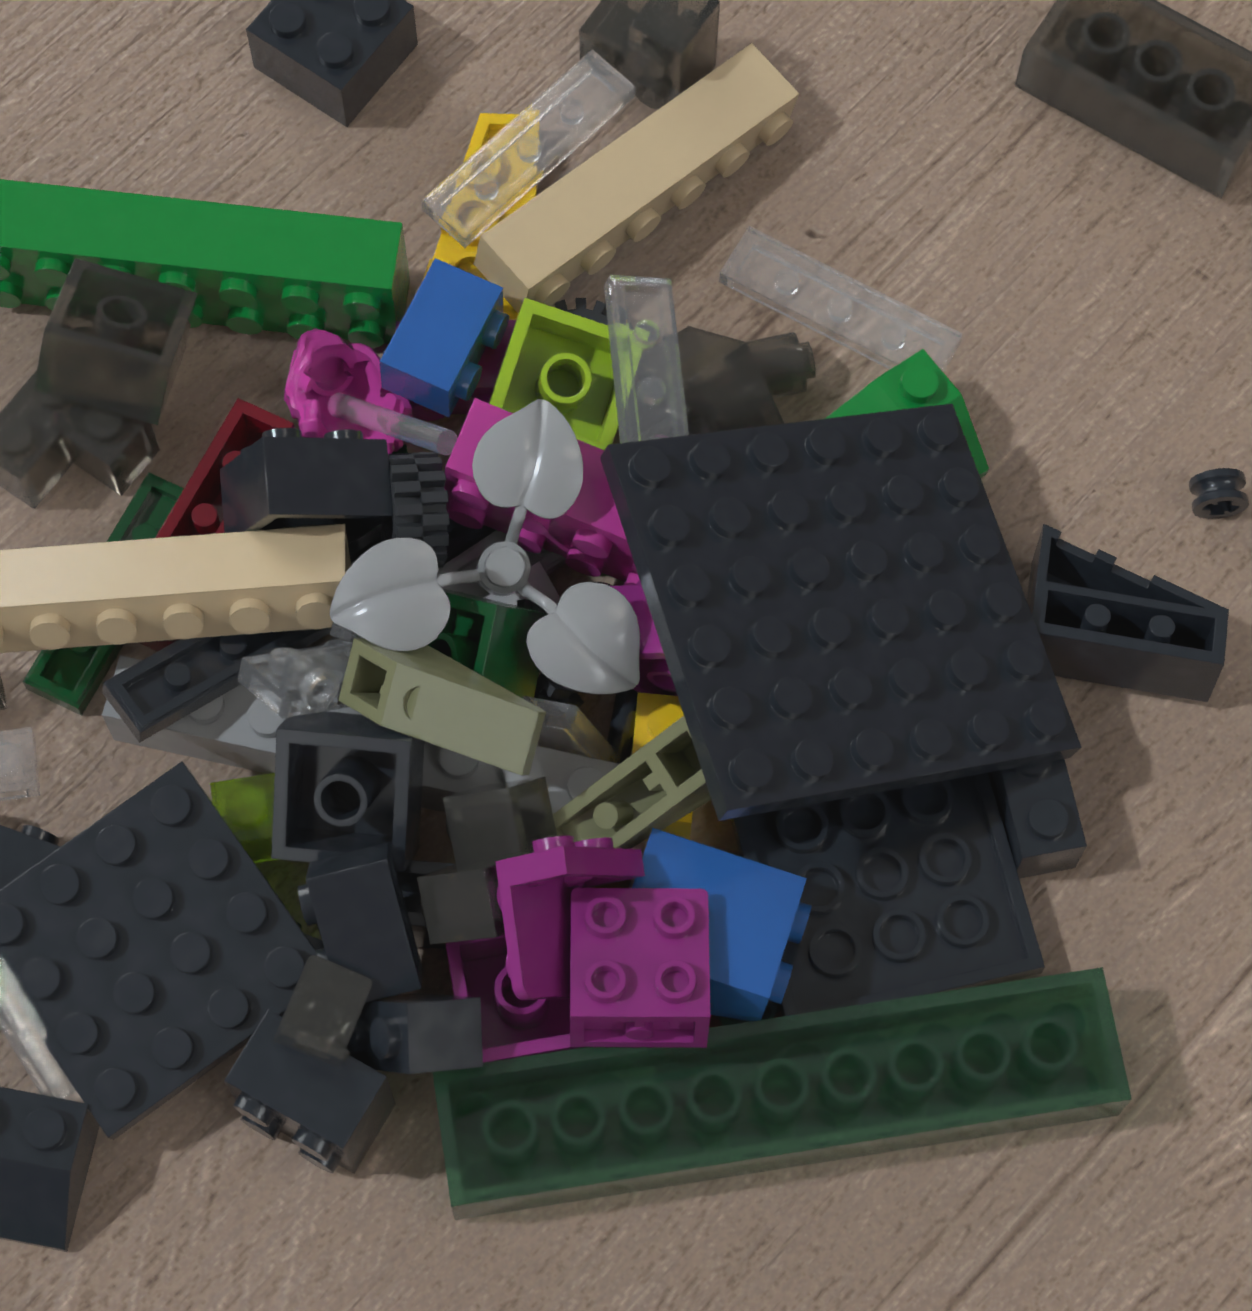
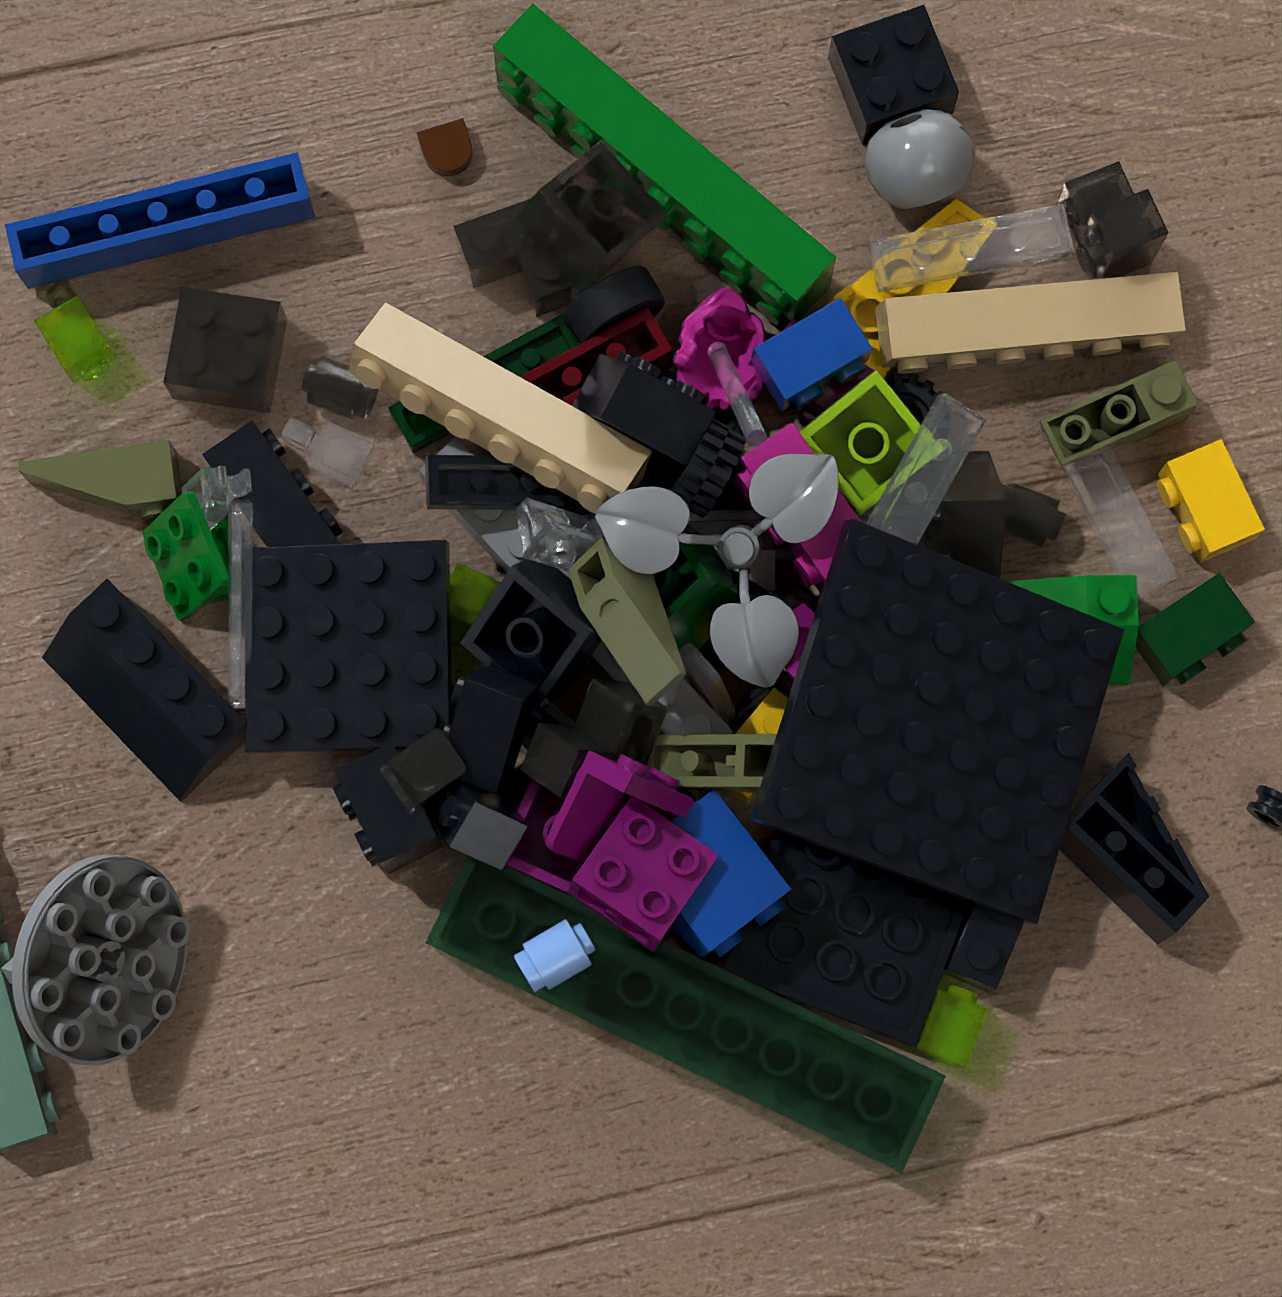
camera: 35 degrees right, 10 degrees up
(194, 418) = (613, 301): none -> black tyre
(417, 92) = (919, 158): none -> light grey piece
(605, 1118) = (555, 955): none -> light blue brick
(795, 209) = (1121, 414): none -> olive slope
(939, 242) = (1209, 501): none -> yellow brick
(1013, 374) = (1193, 629): none -> dark green brick
(1068, 922) = (952, 1026): none -> clear neon green brick

